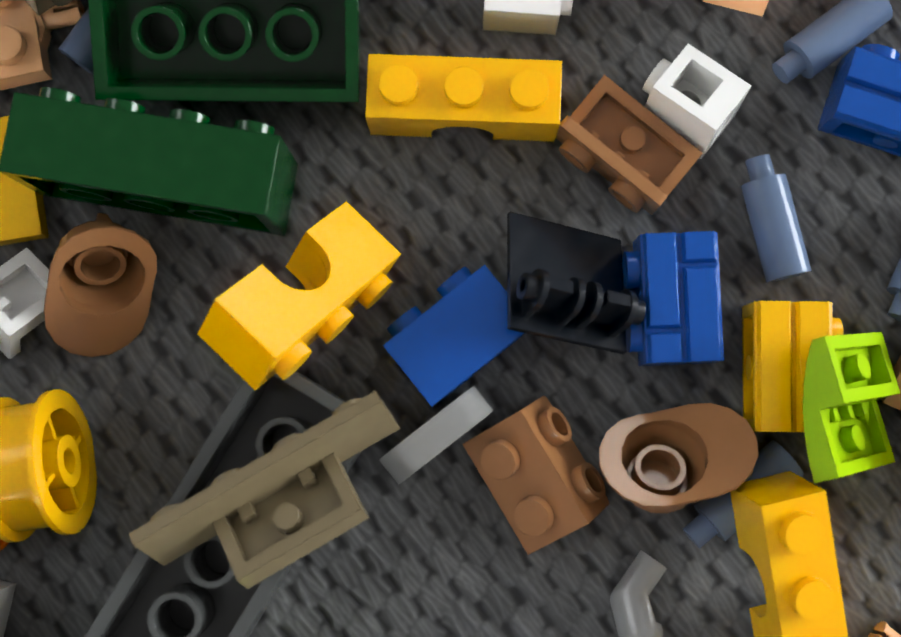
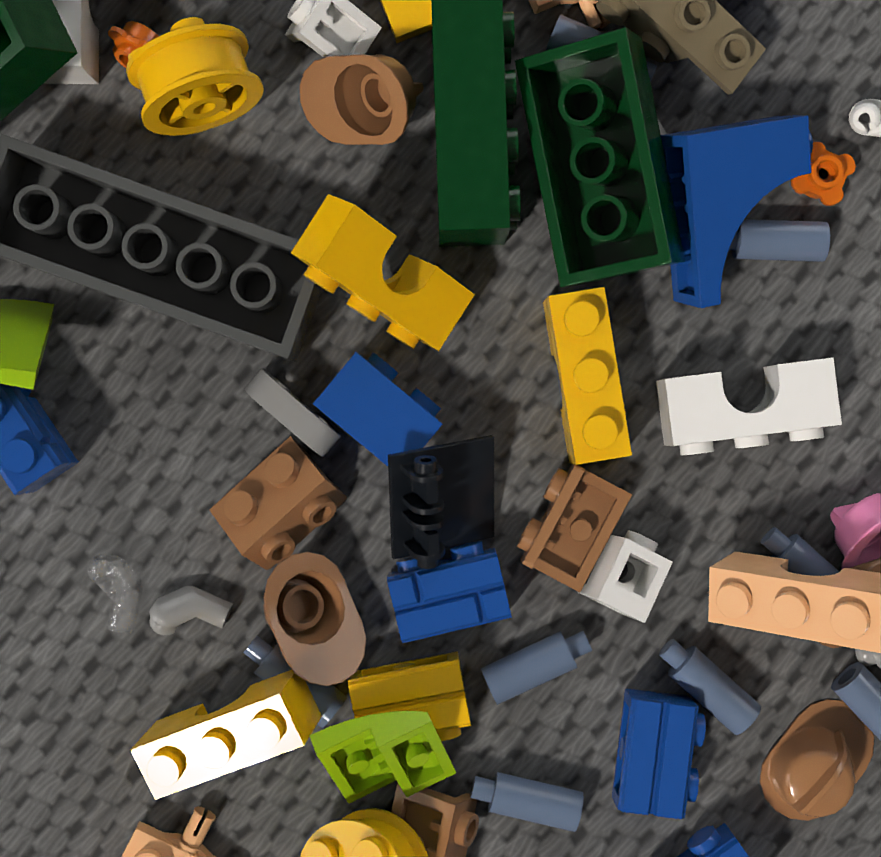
camera: 75 degrees right, 5 degrees up
(279, 502) = (199, 292): dark tan bracket -> none

